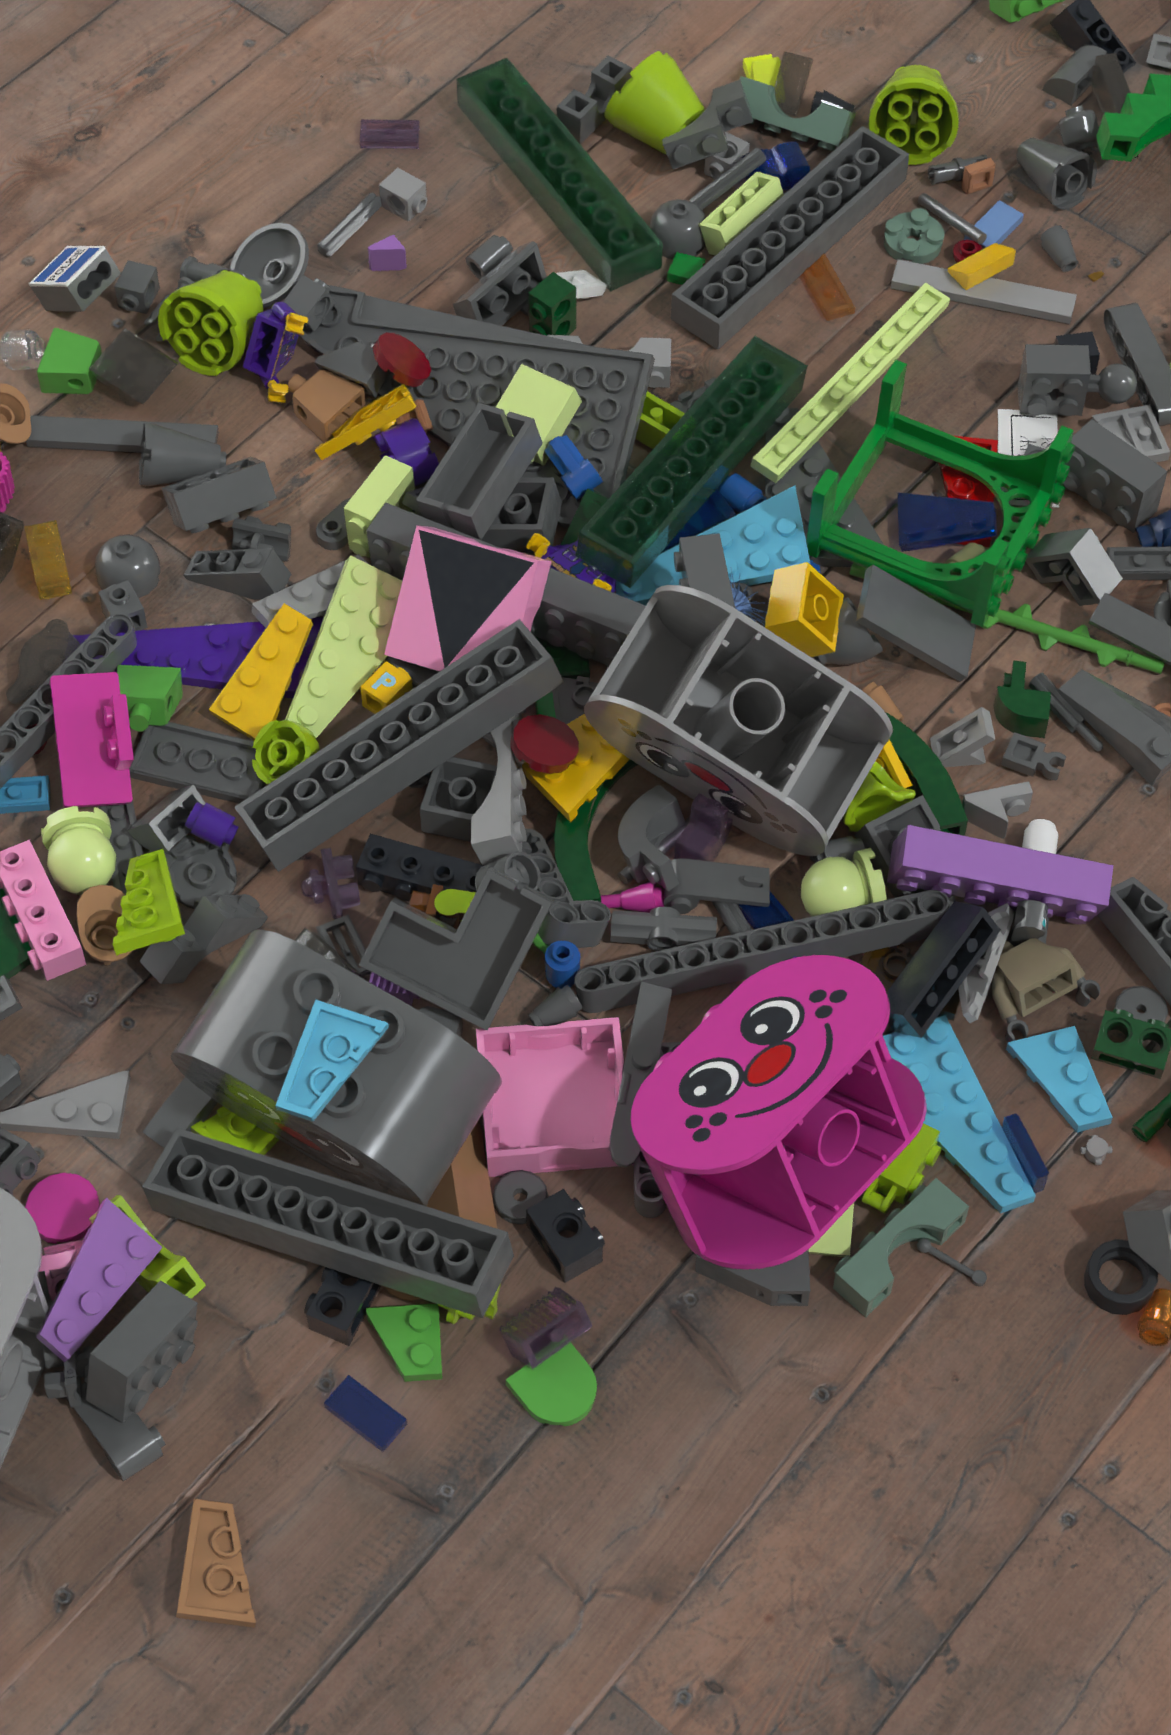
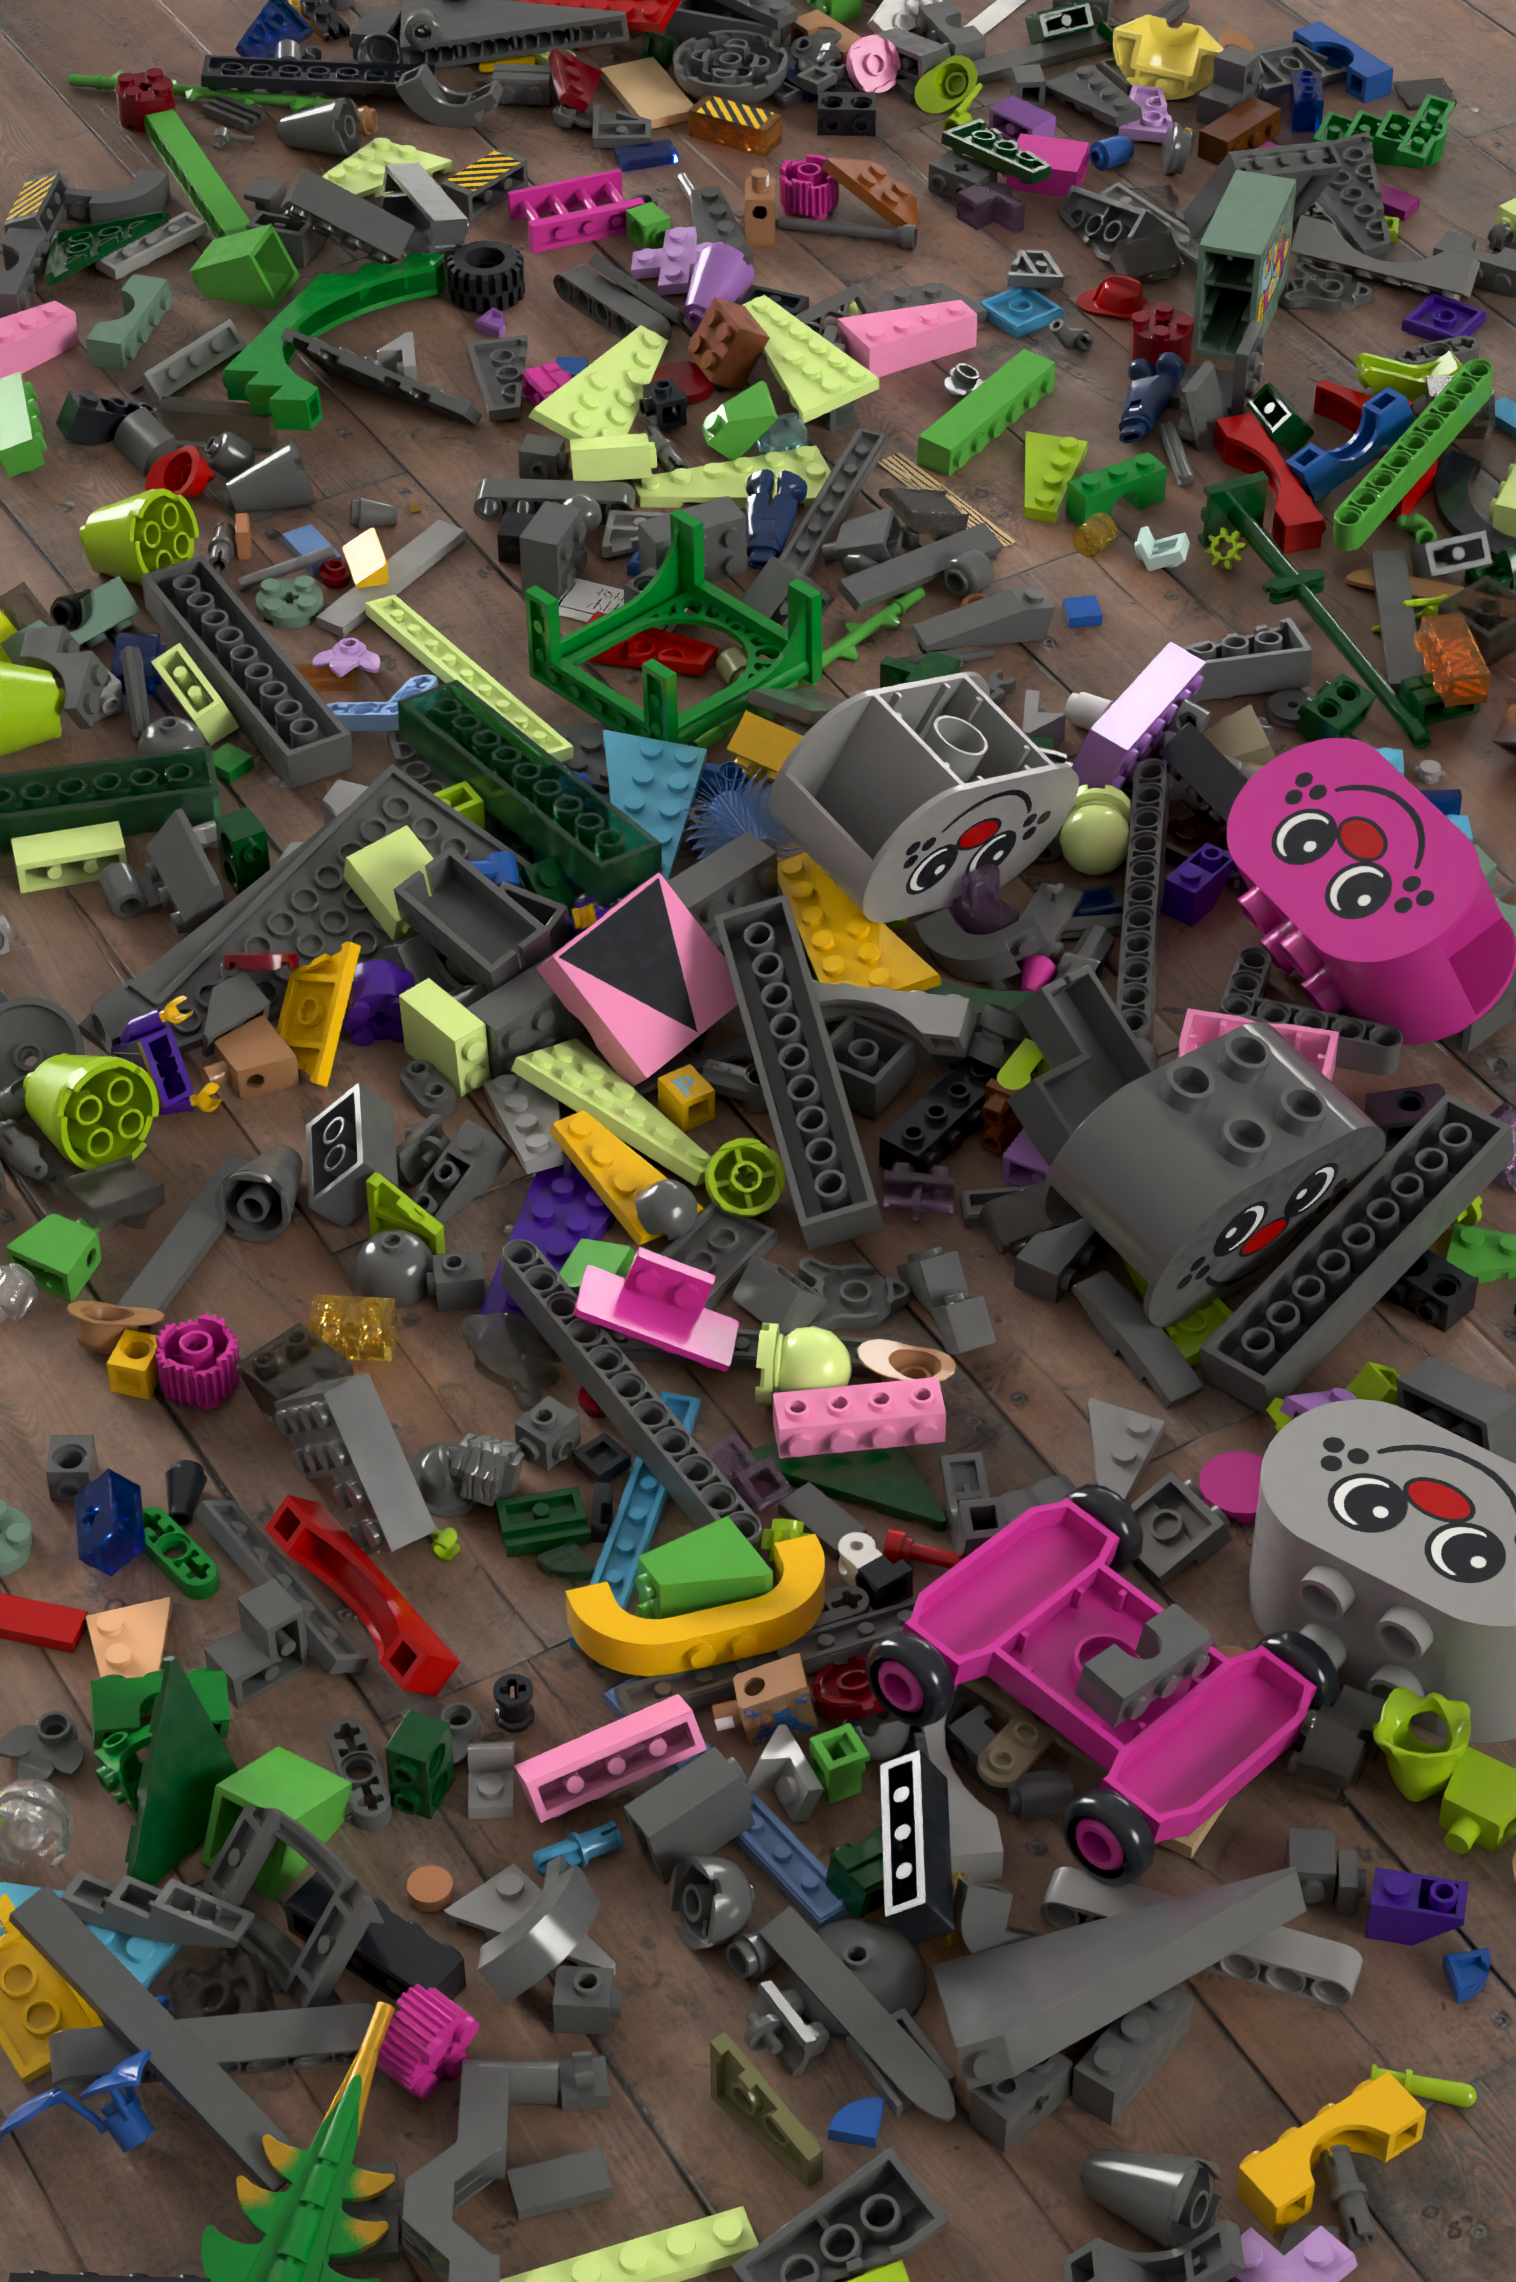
camera: 70 degrees left, 15 degrees down
(149, 905) = (916, 1307): lime wing -> none
(168, 553) = (394, 1210): none -> lime wing
(211, 824) = (811, 1253): dark purple brick -> none
(233, 714) = (667, 1208): none -> dark grey hair
(326, 1057) = (1272, 1090): medium azure wing -> none
(387, 255) = (64, 964): medium lavender slope -> none
(517, 211) = (67, 856): none -> yellowish green brick
(544, 743) = (852, 962): dark red tile -> none
(640, 1061) = (1253, 1007): dark grey piece -> none
(704, 566) = (730, 777): dark grey brick -> none
(825, 356) = (380, 715): none -> light blue beam
(851, 295) = (346, 656): none -> lavender plate
(939, 521) = (687, 655): clear blue wing -> none
(1035, 109) = (180, 473): none -> red piece

